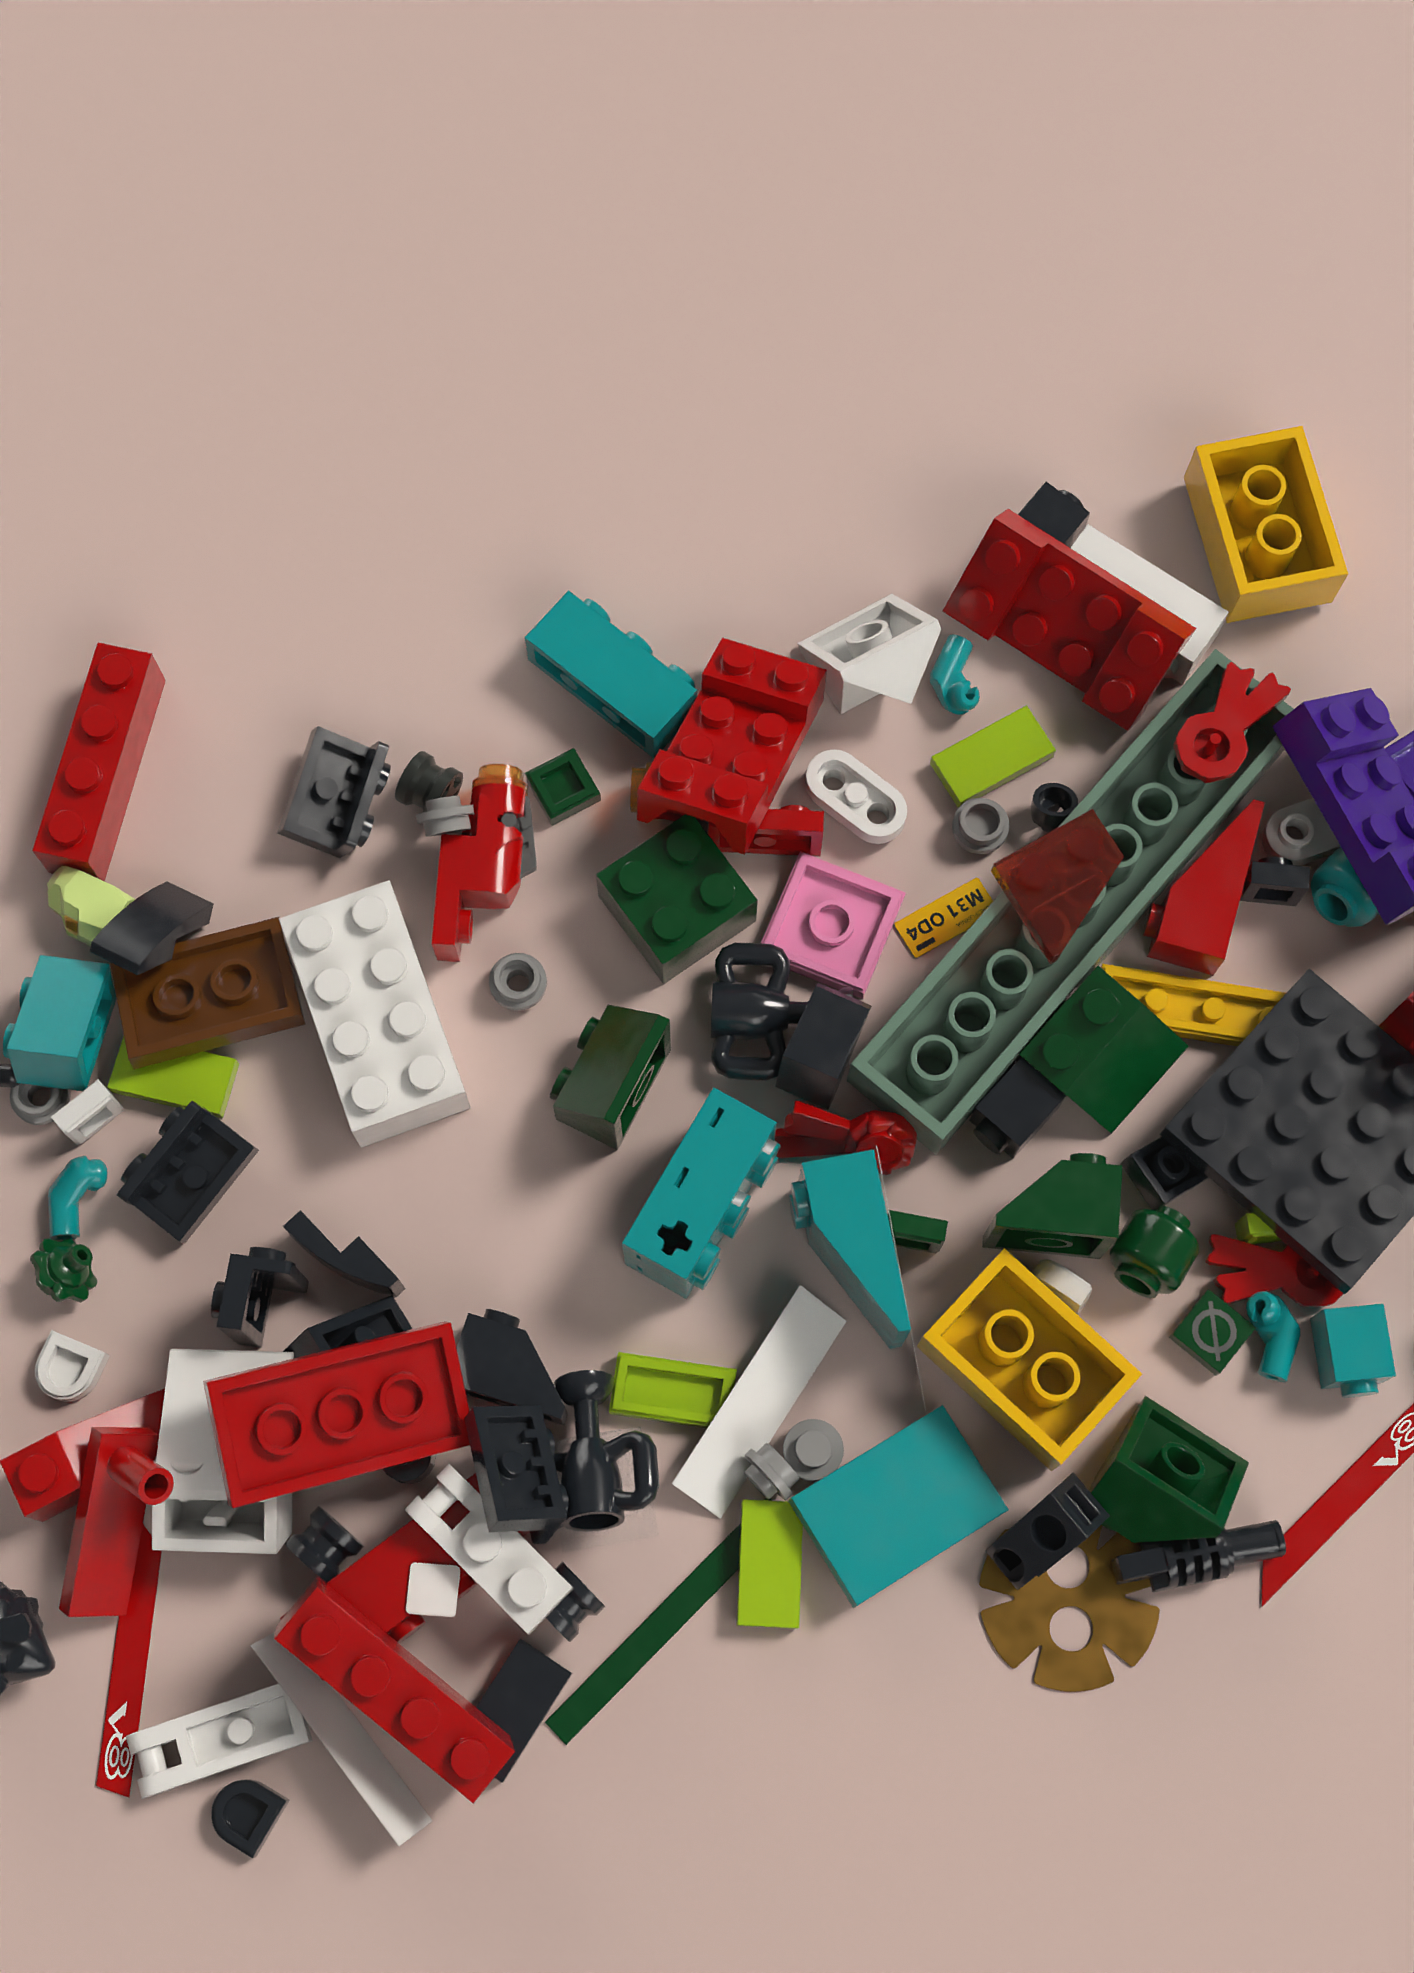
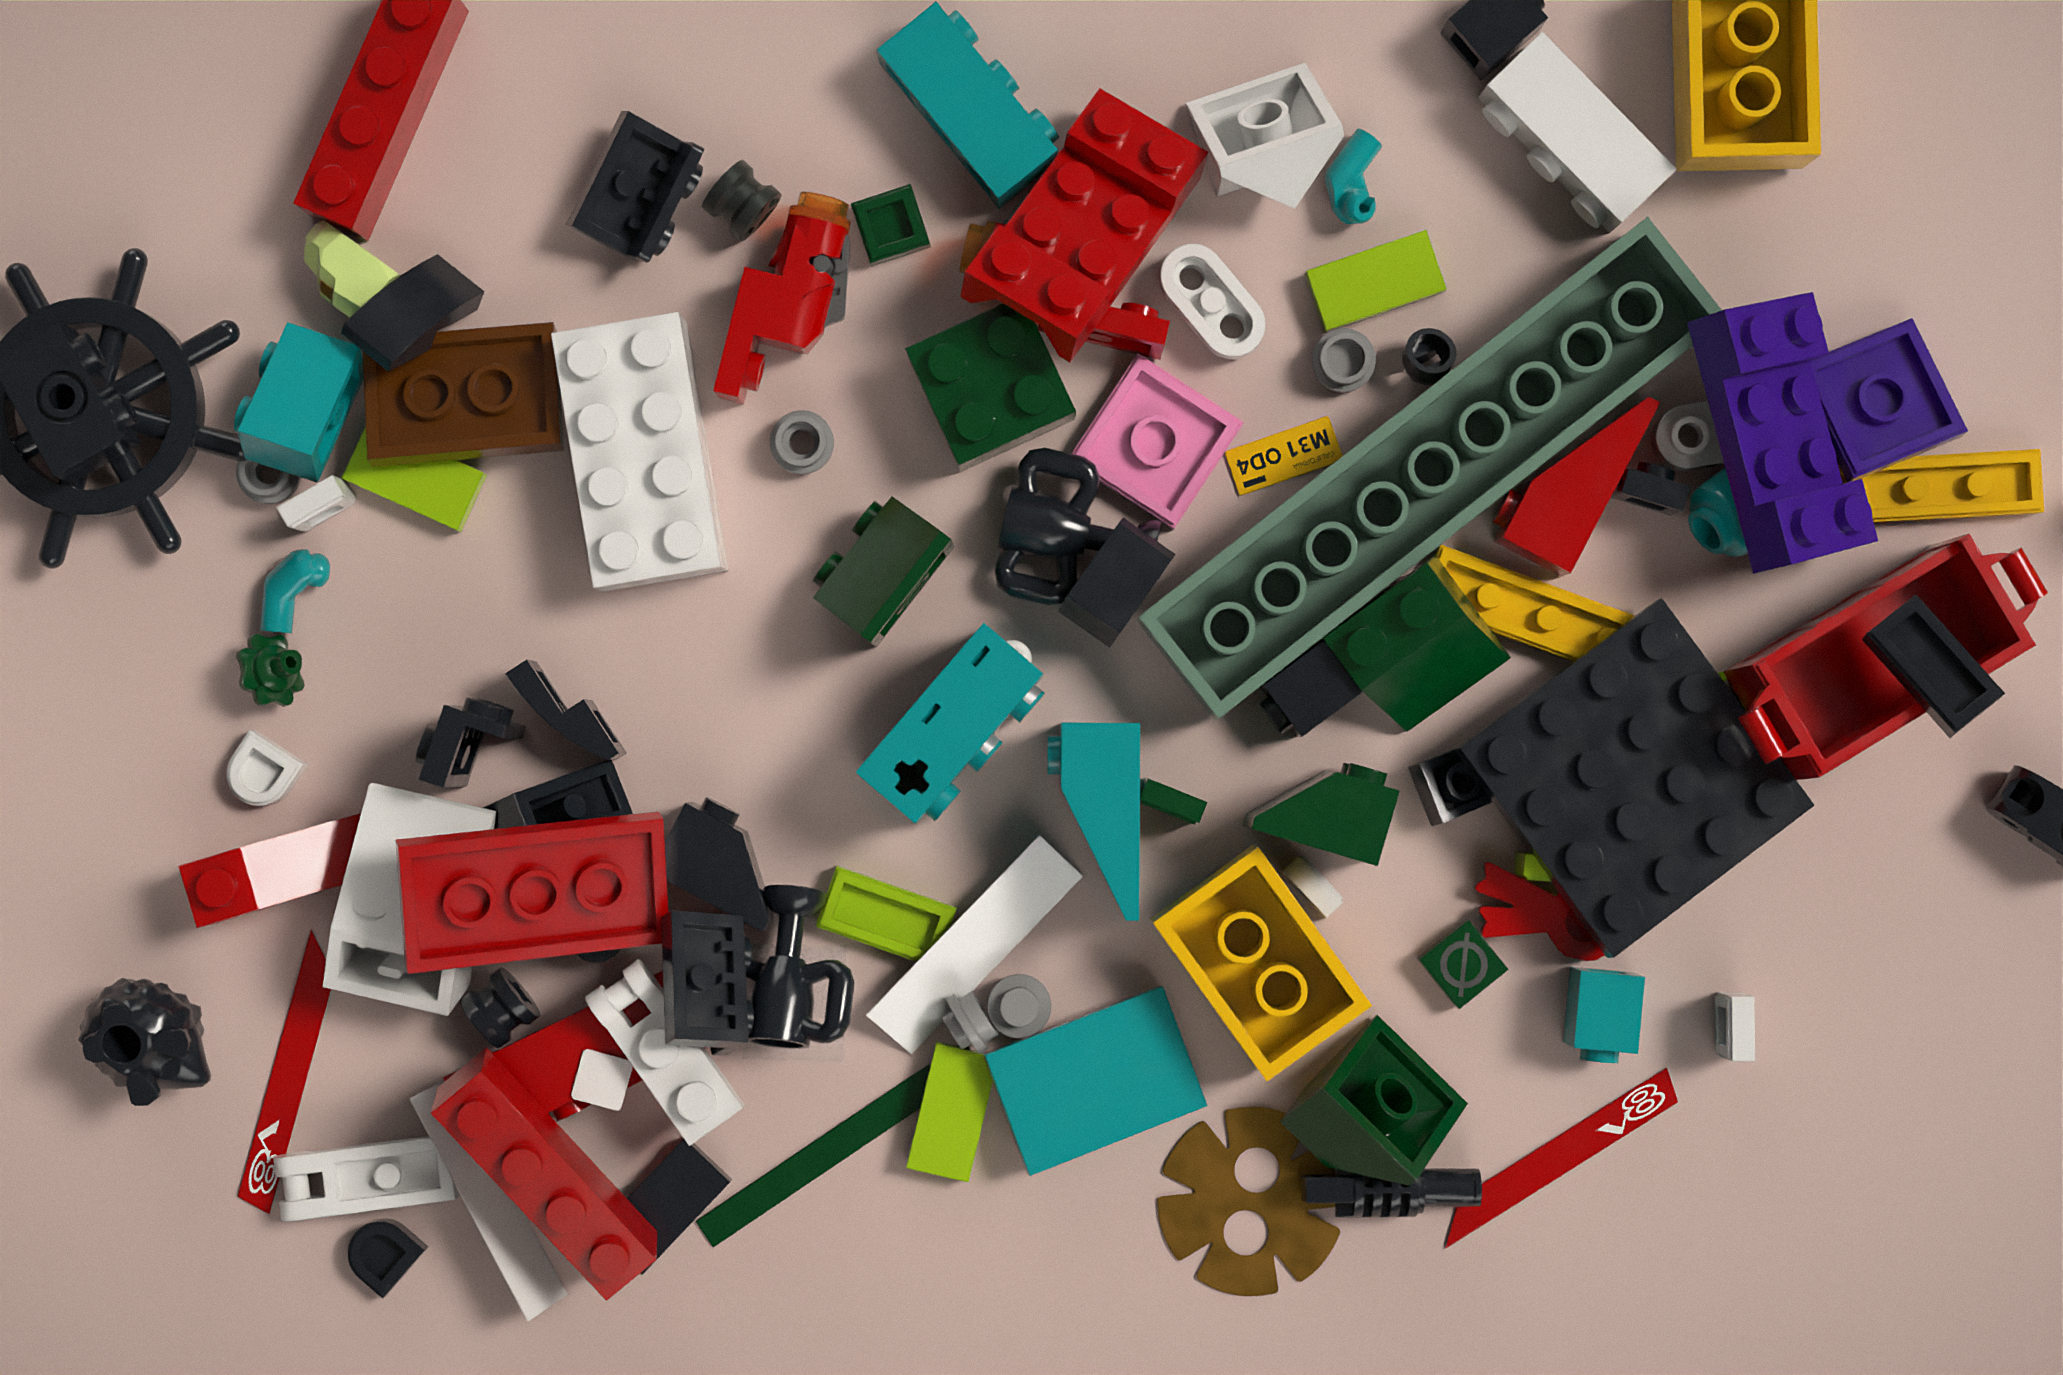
camera: 10 degrees right, 15 degrees up
(109, 1519) = (289, 929): red piece -> none
(186, 1170) = (414, 588): black bracket -> none
(445, 816) = (752, 248): light grey plate -> none
(574, 1606) = (752, 1117): black wheel -> none
(819, 1132) = (1145, 694): red piece -> none
(900, 1272) = (1145, 845): white sticker -> none
(1048, 1532) = (1241, 1141): black leg -> none
(1059, 879) = (1409, 457): clear red wing -> none
(1068, 617) = (1495, 140): red piece -> none
(1154, 1251) = (1420, 871): dark green head -> none
(1214, 742) = (1616, 332): red piece -> none
(1278, 1332) = (1531, 975): teal arm -> none

